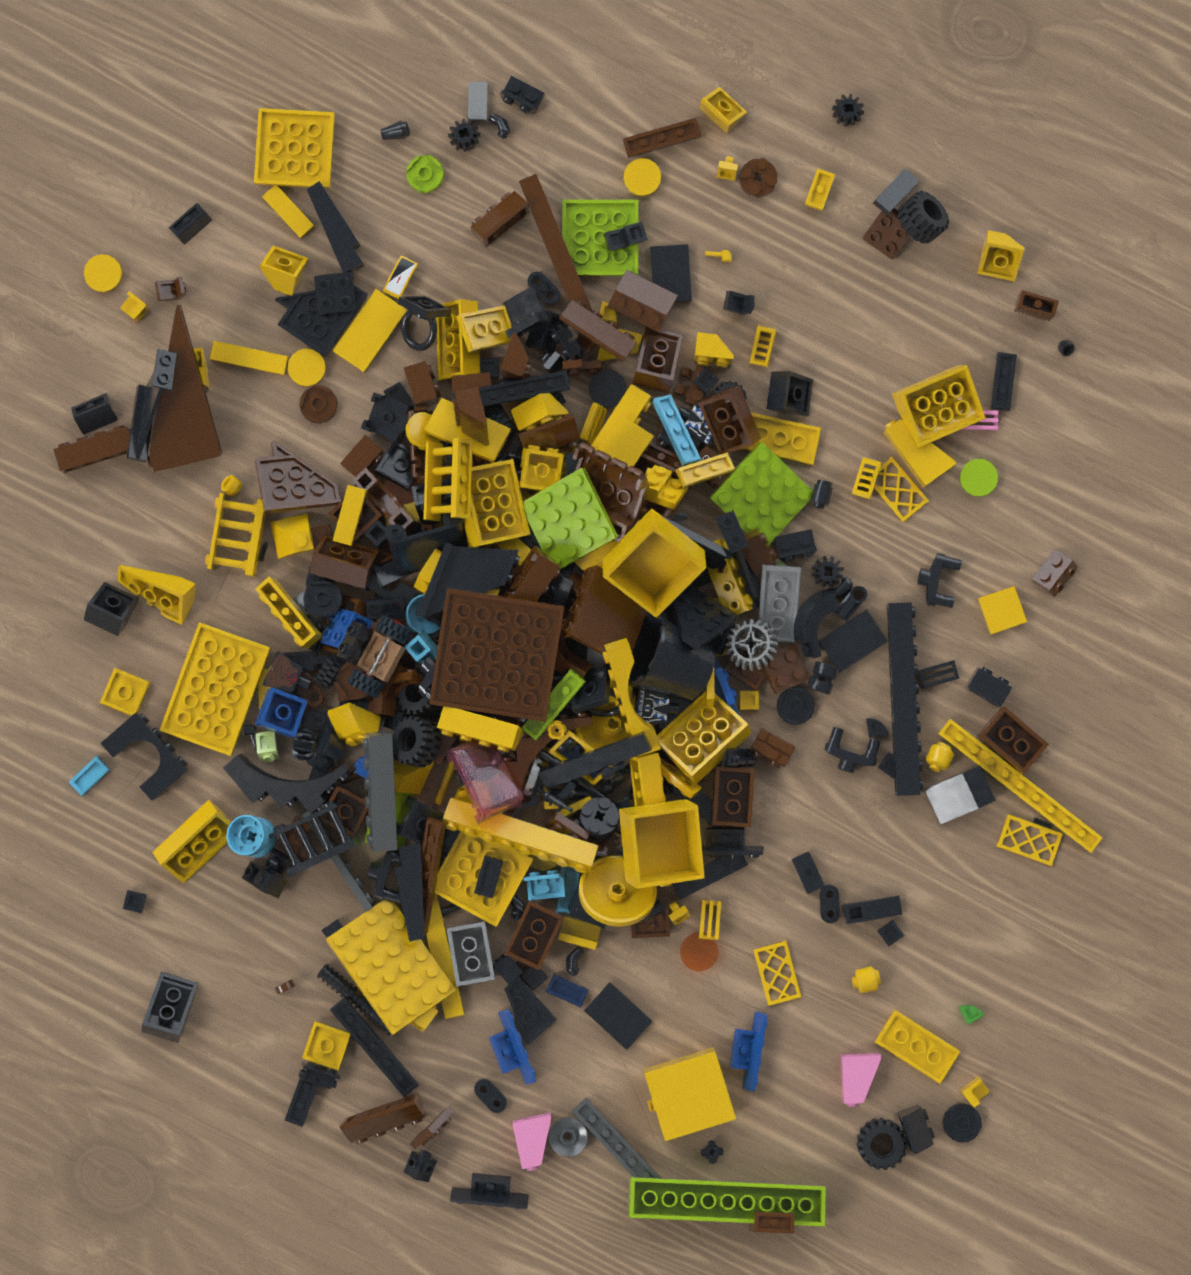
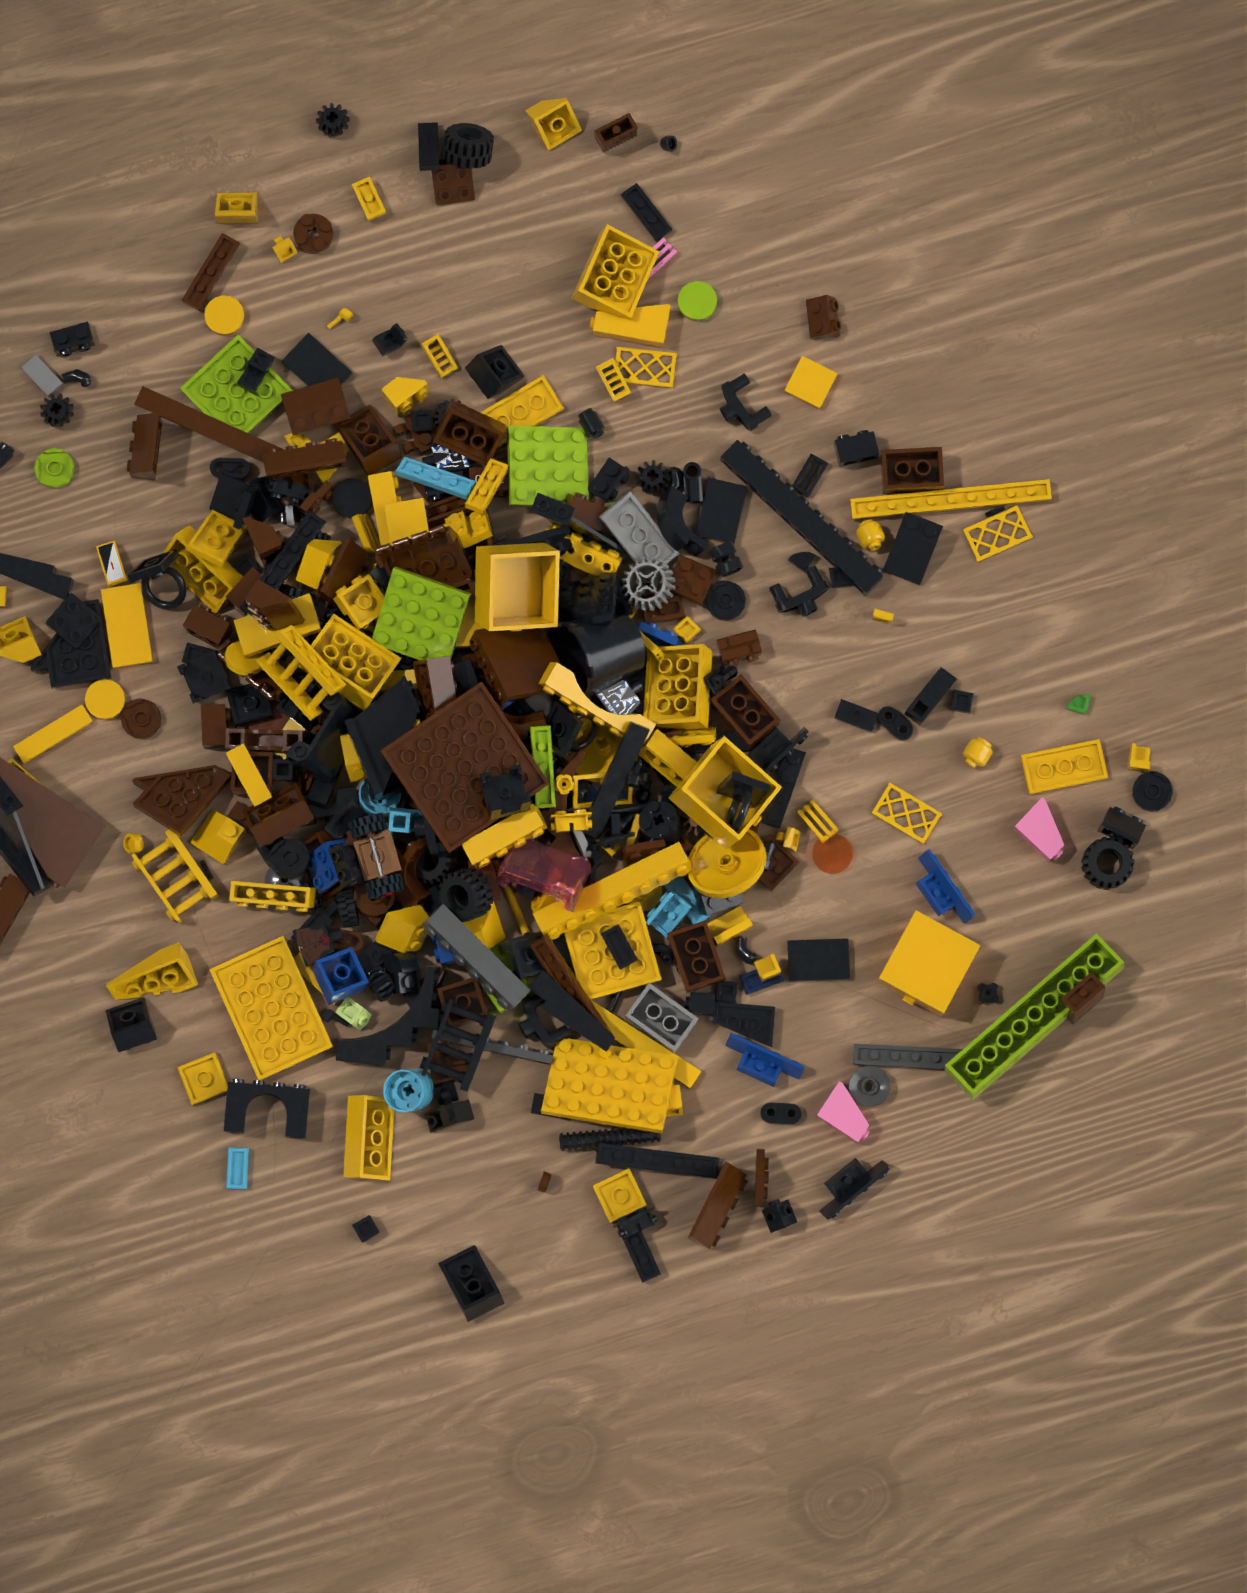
camera: 50 degrees left, 5 degrees down
(505, 700) = (504, 793): none -> black panel
(531, 754) = (578, 818): none -> yellow hinge
(576, 988) = (767, 967): none -> yellow panel
(674, 853) = (741, 790): none -> black tile
(892, 821) = (882, 616): none -> yellow tile

